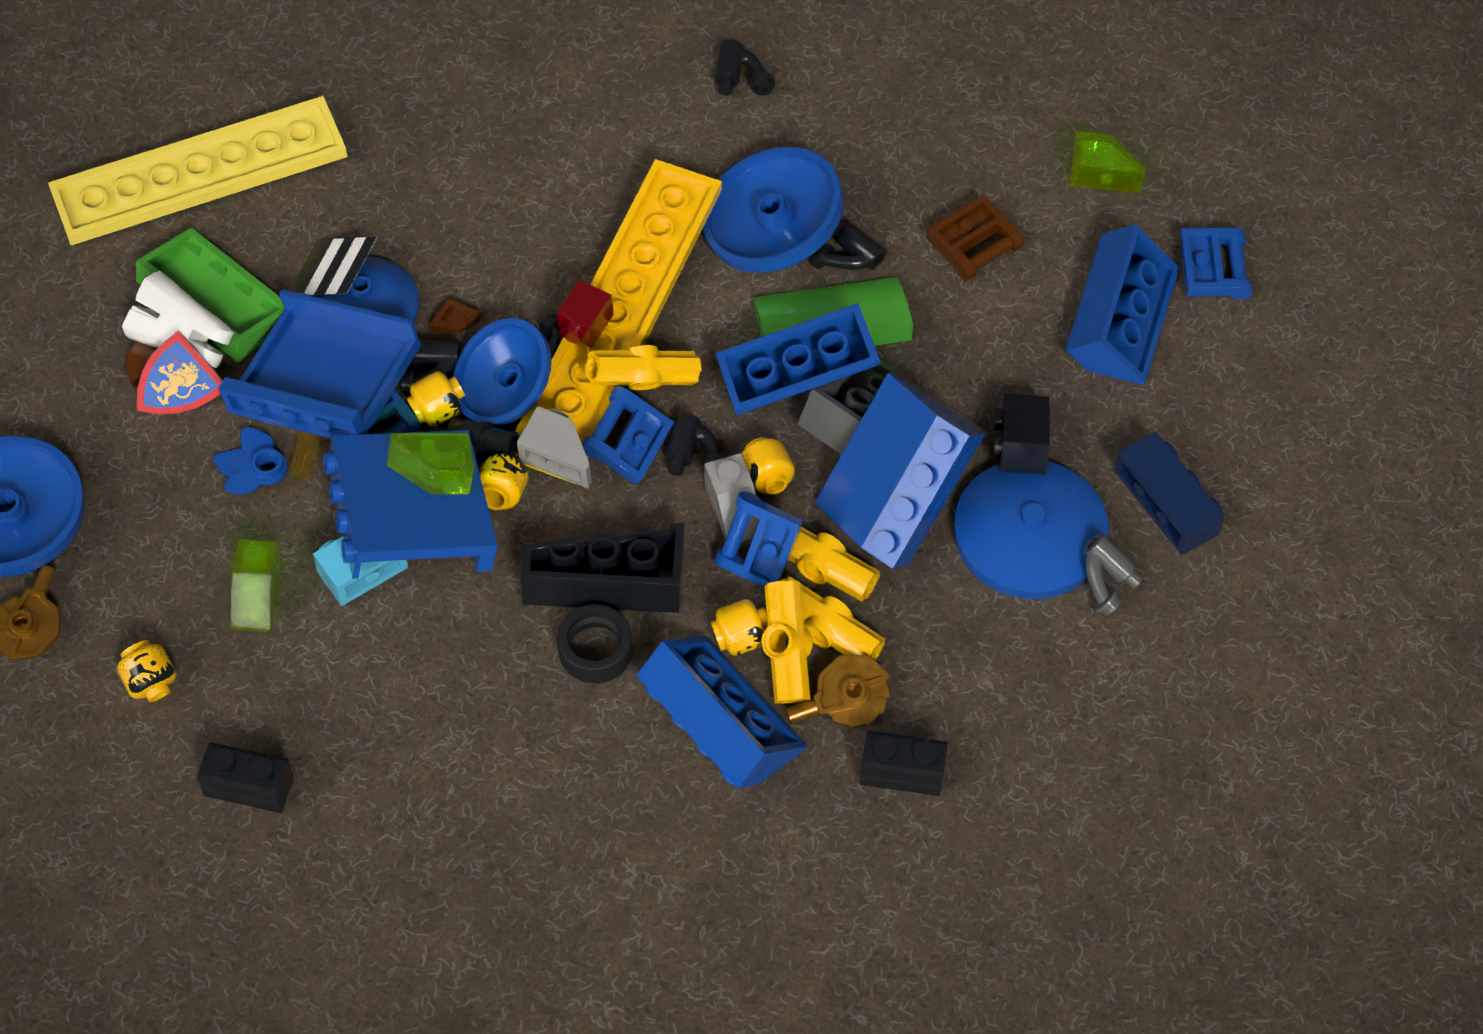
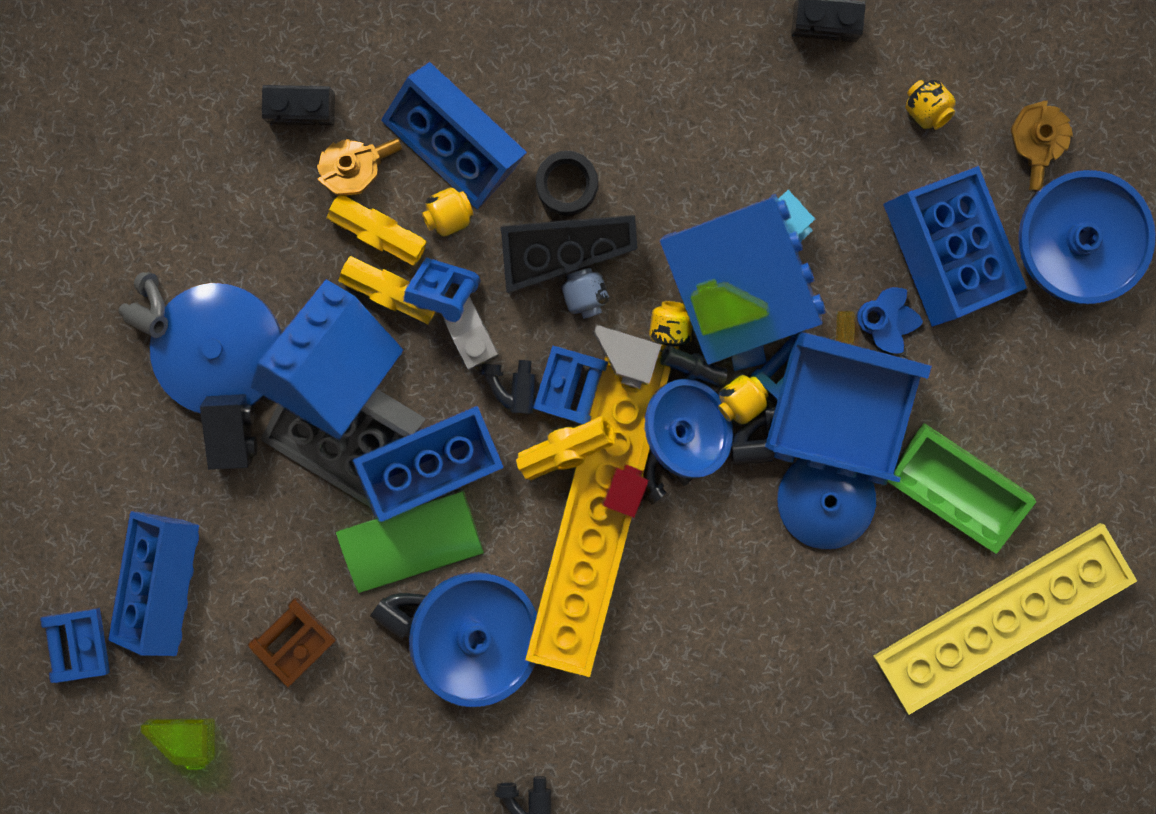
camera: 175 degrees right, 30 degrees up
(136, 361) = (1006, 408): reddish brown tile -> none
(157, 522) = (955, 246): none -> blue slope
(172, 311) = (987, 440): white piece -> none
(176, 379) = (970, 386): shield -> none
(255, 584) = (859, 197): clear neon green slope -> none
(332, 266) = (861, 526): black sticker -> none
(454, 316) = (744, 494): reddish brown tile -> none
(592, 518) = (585, 293): none -> sand blue head
(768, 465) = (446, 372): yellow head -> none
(784, 622) = (405, 196): yellow piece -> none
(1169, 493) = (99, 394): dark blue brick -> none

